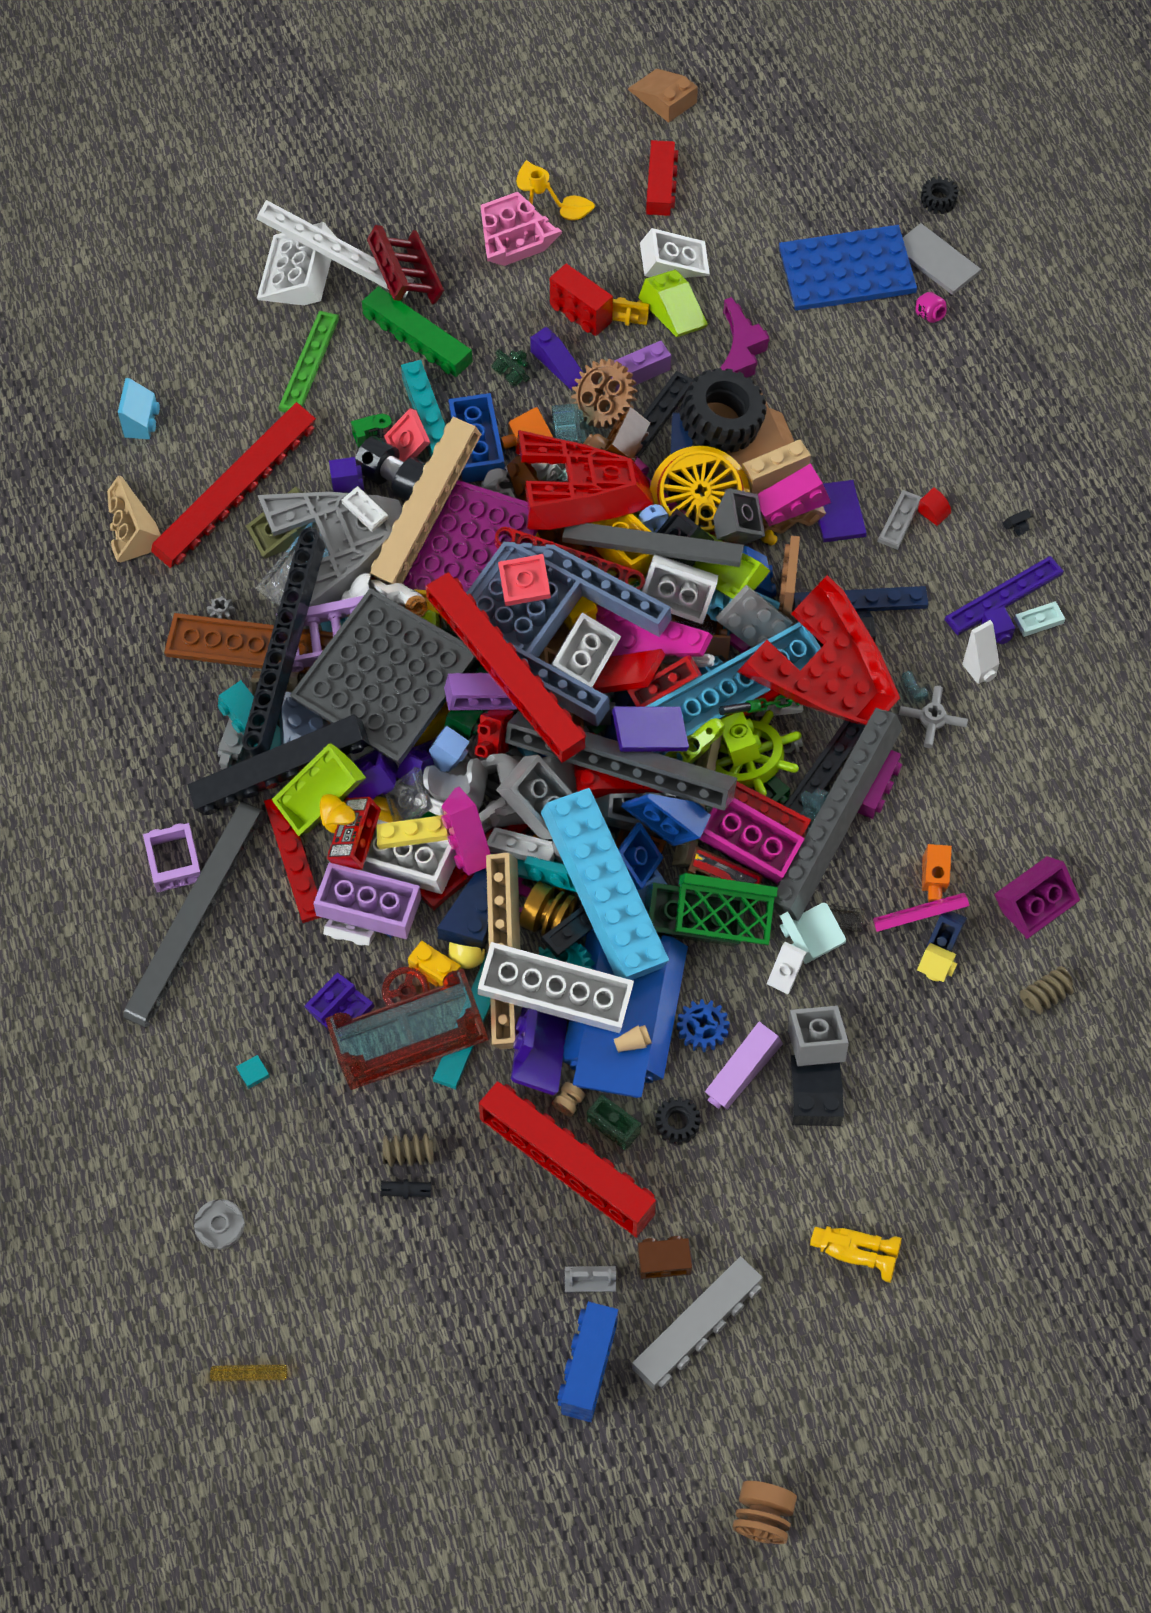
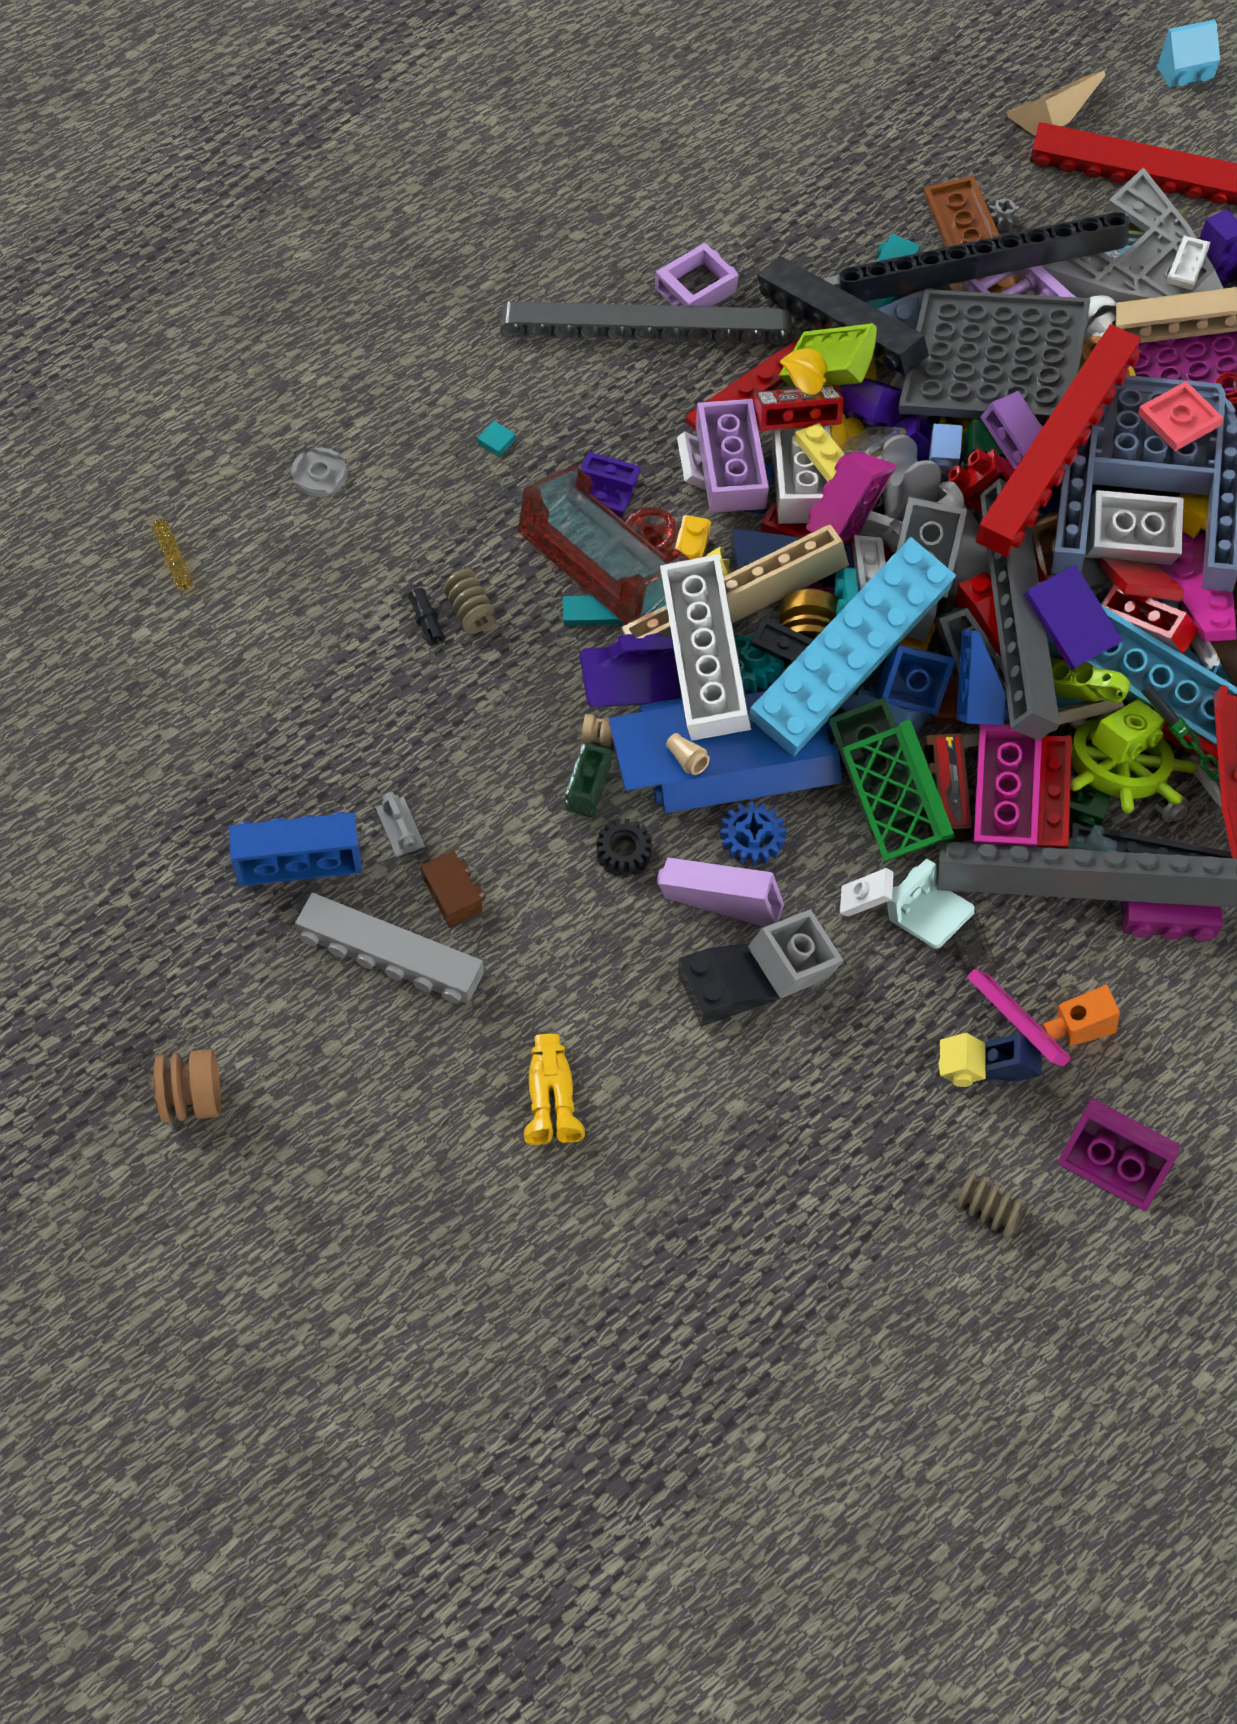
camera: 65 degrees right, 0 degrees up
(567, 1158) = (520, 749): red brick -> none

